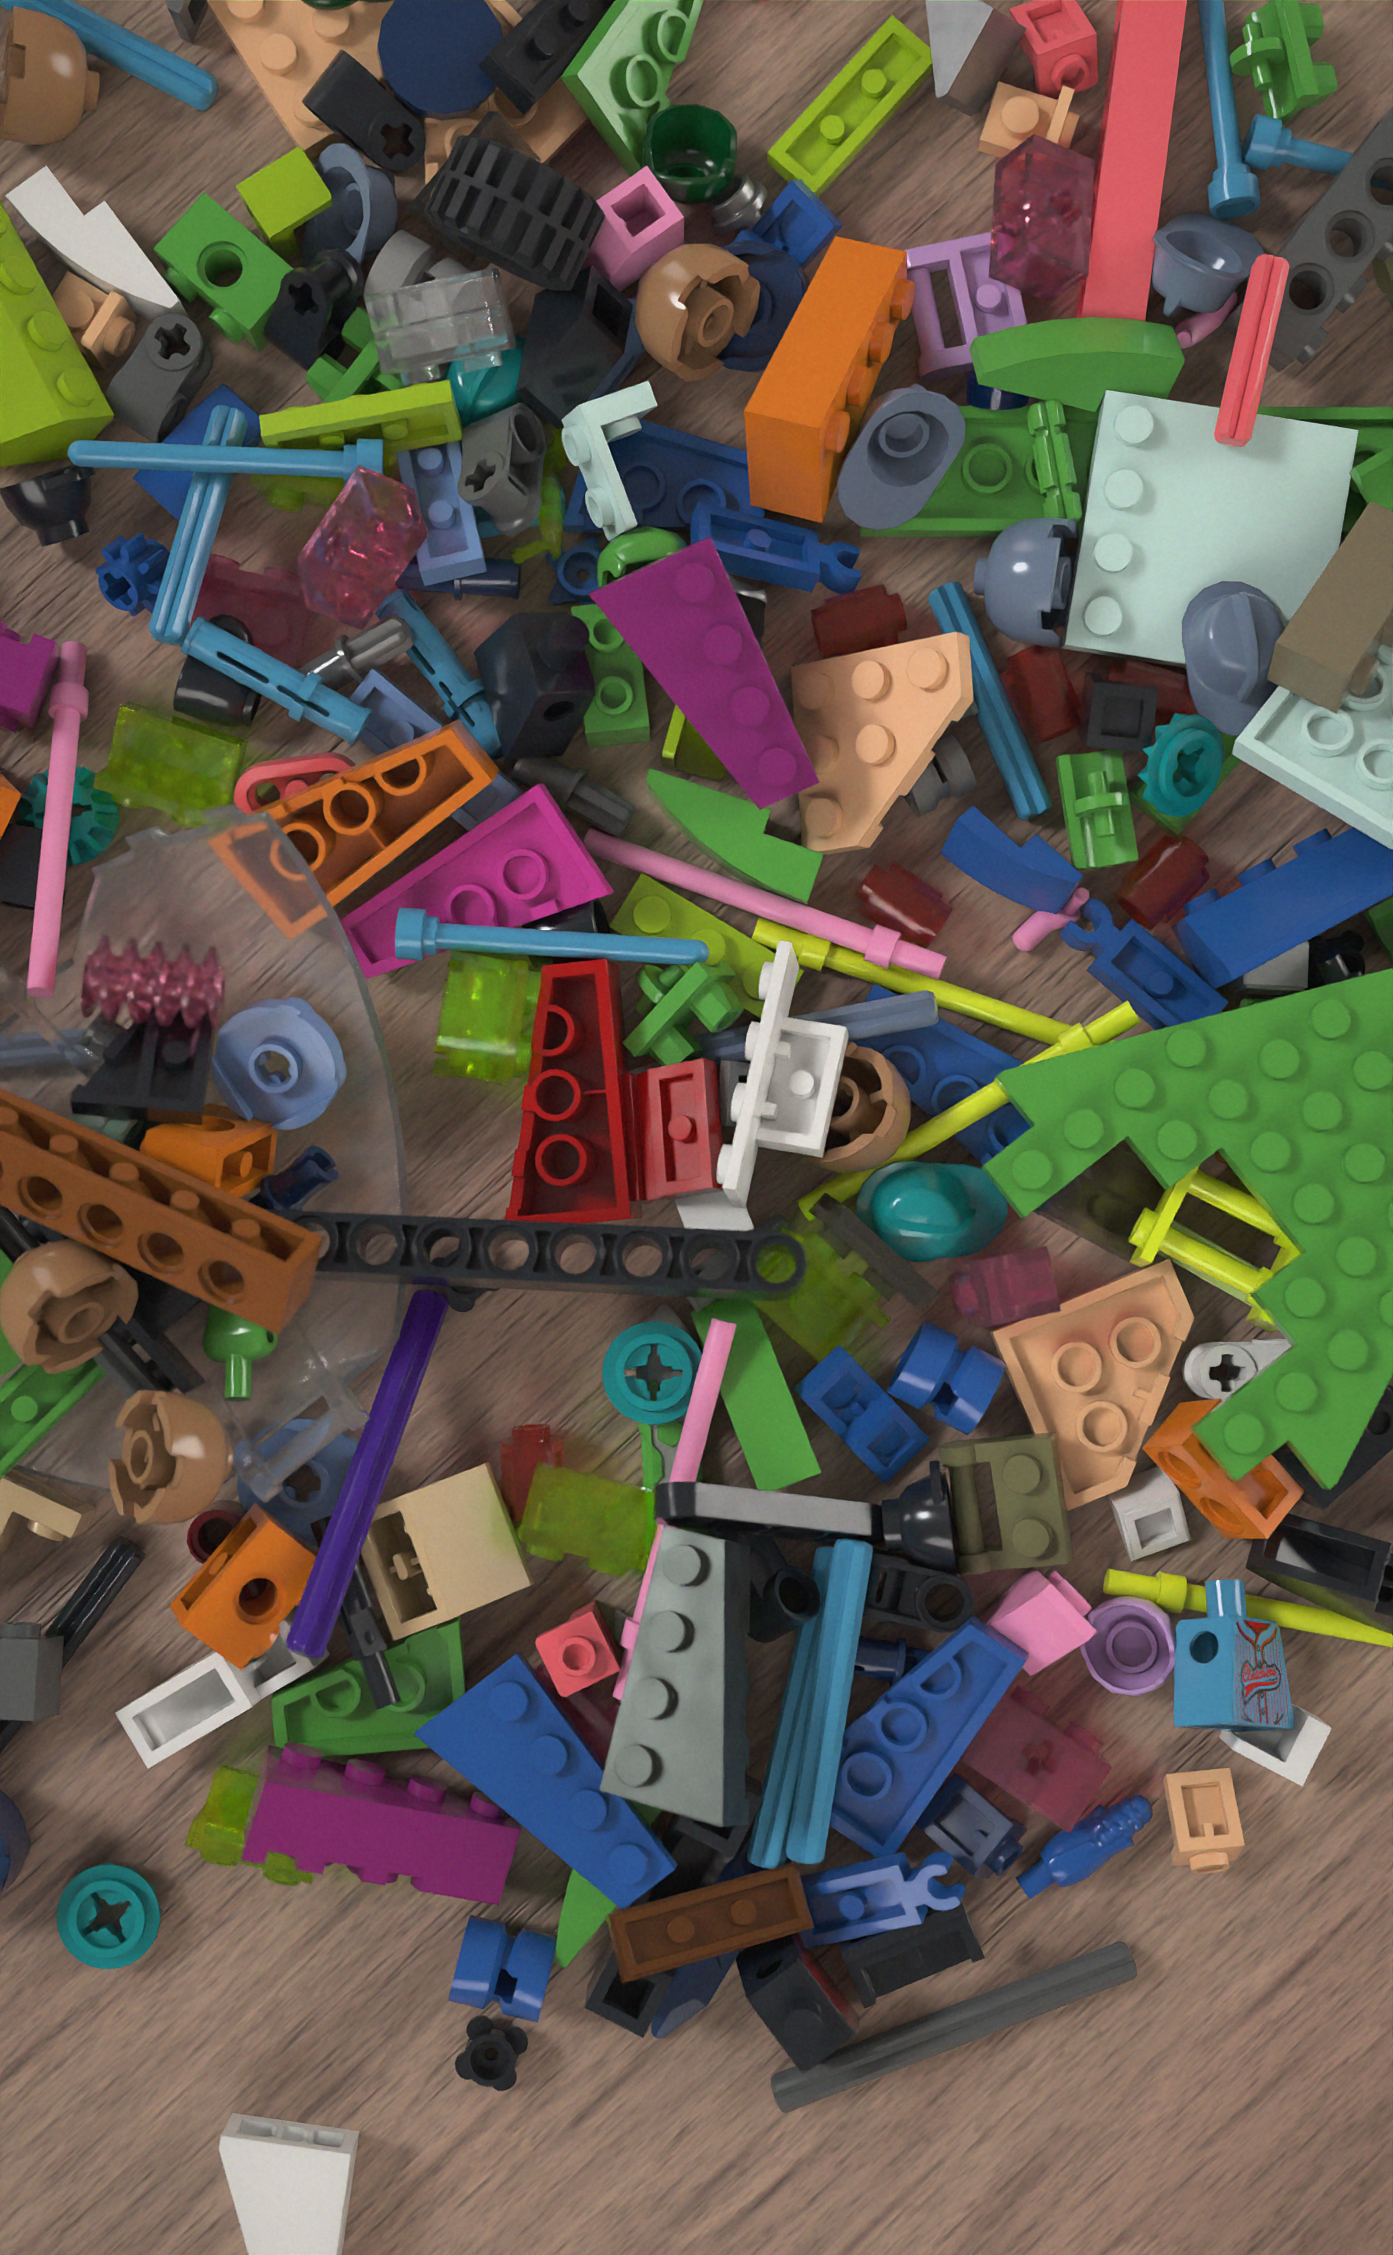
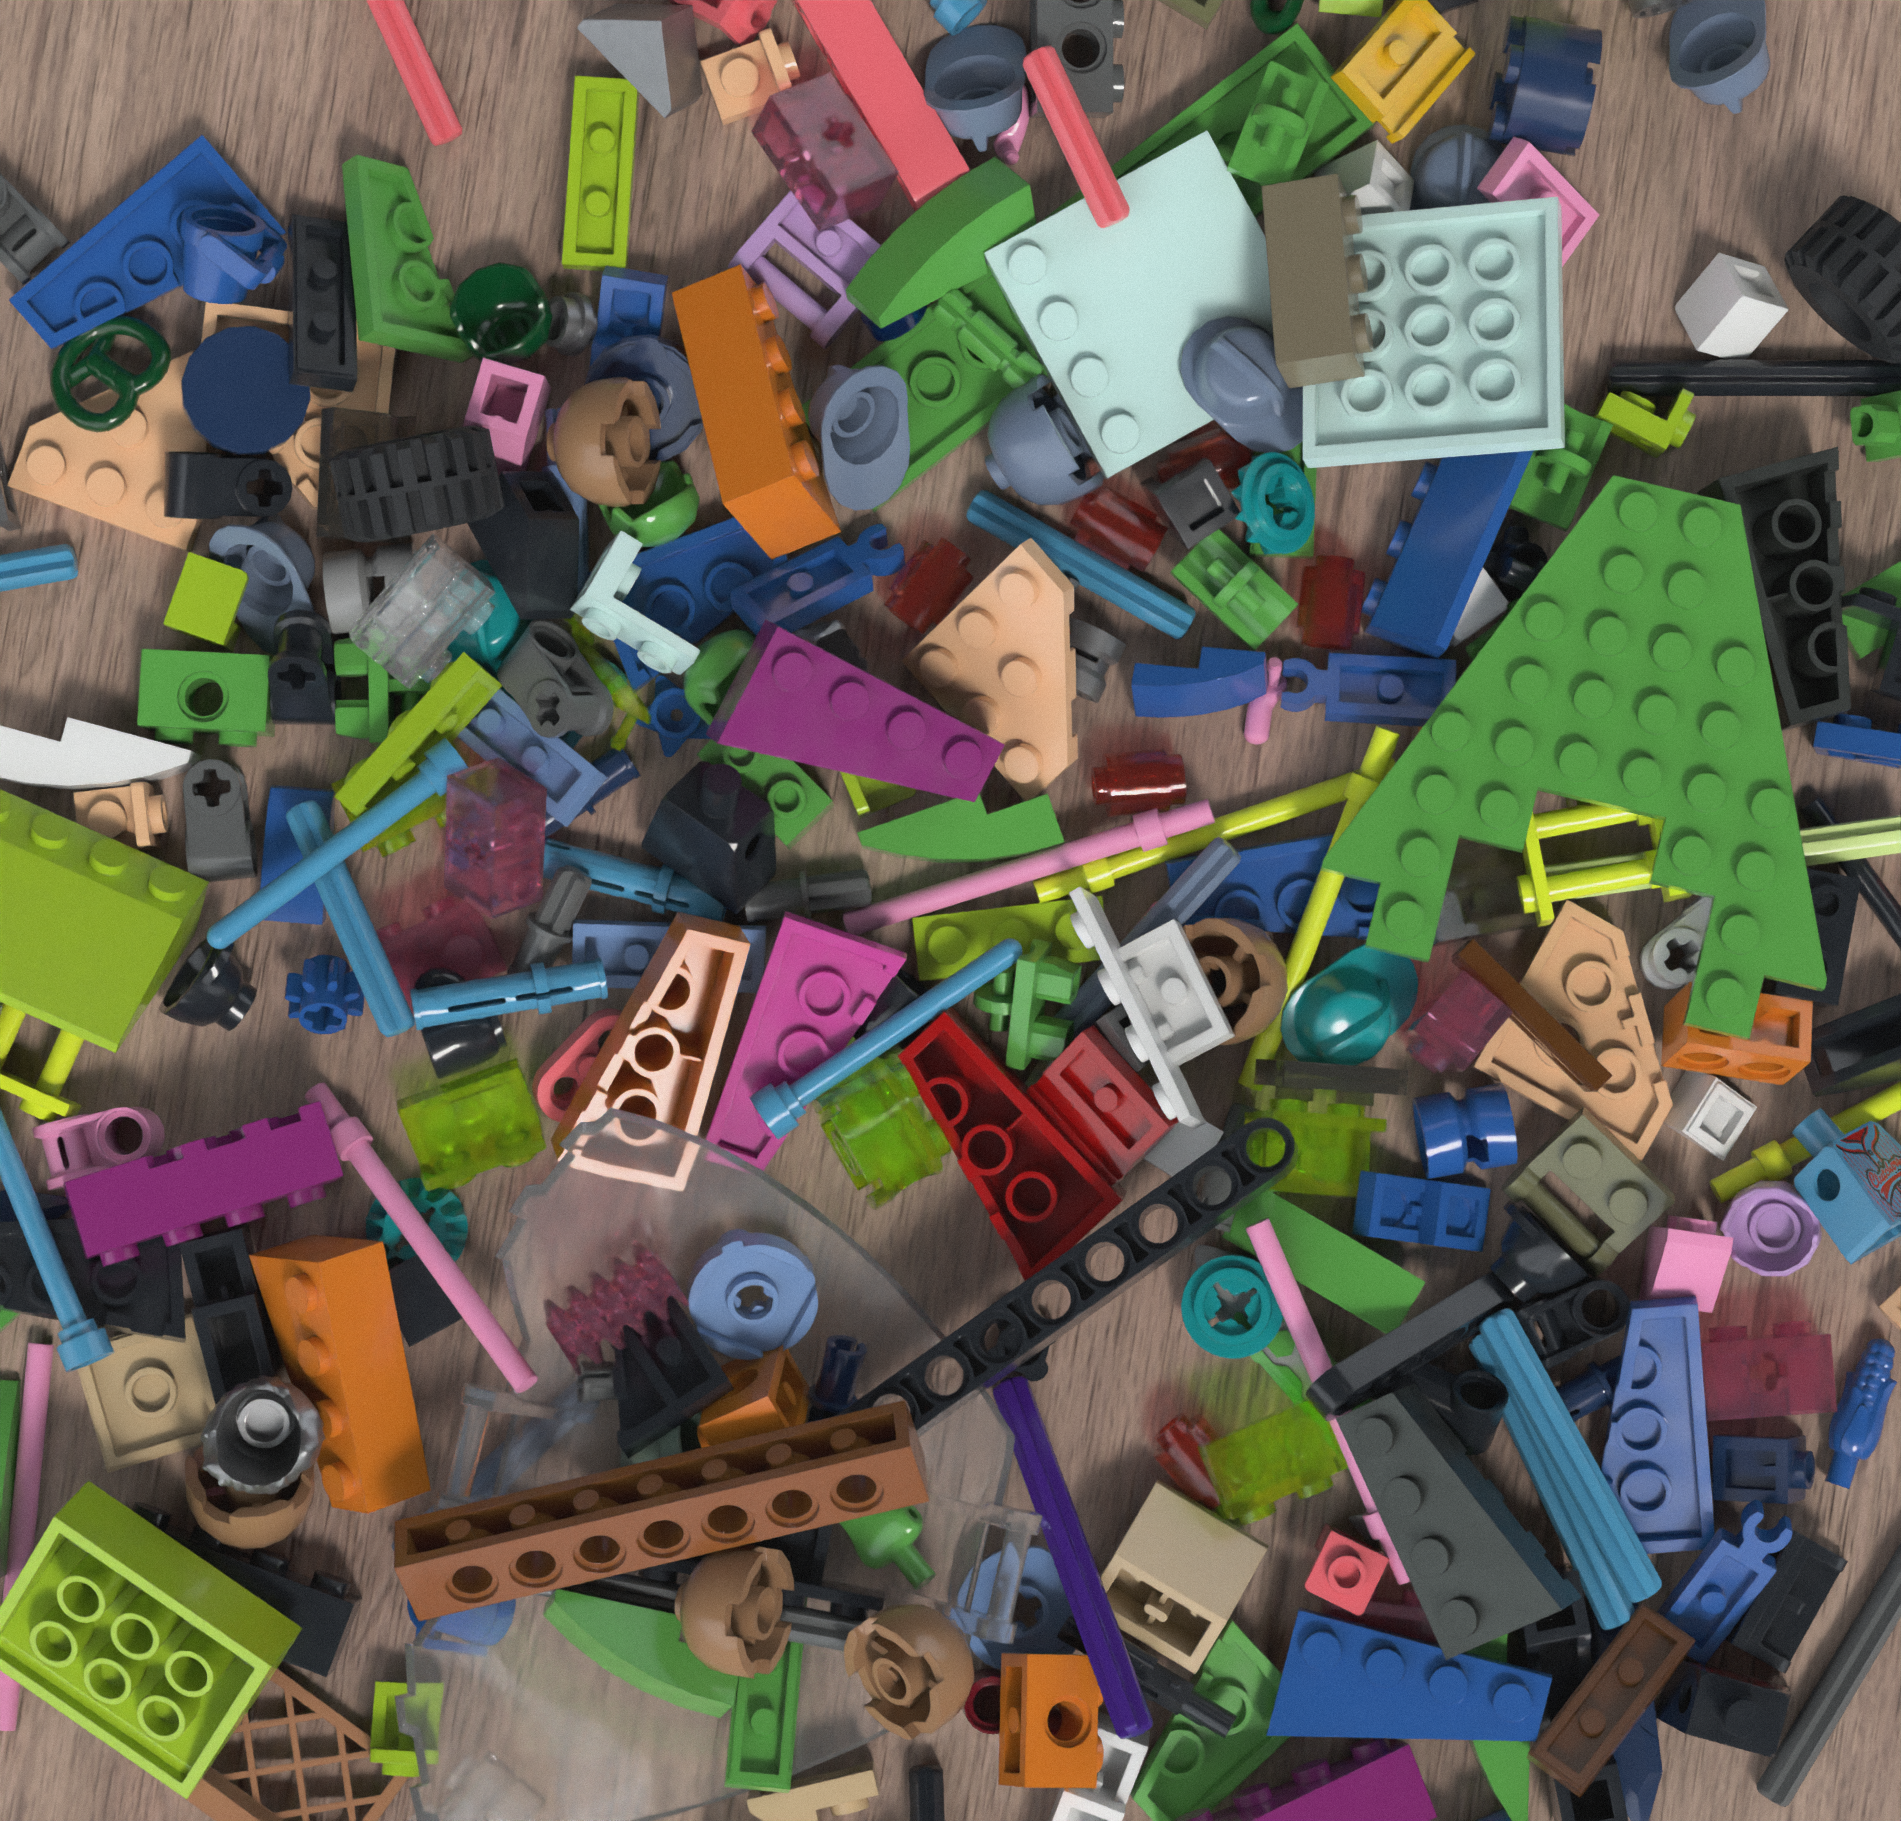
camera: 35 degrees left, 0 degrees up
(692, 404) = (664, 515): none -> bright green hair
(1071, 1332) = (1532, 1018): none -> reddish brown tile

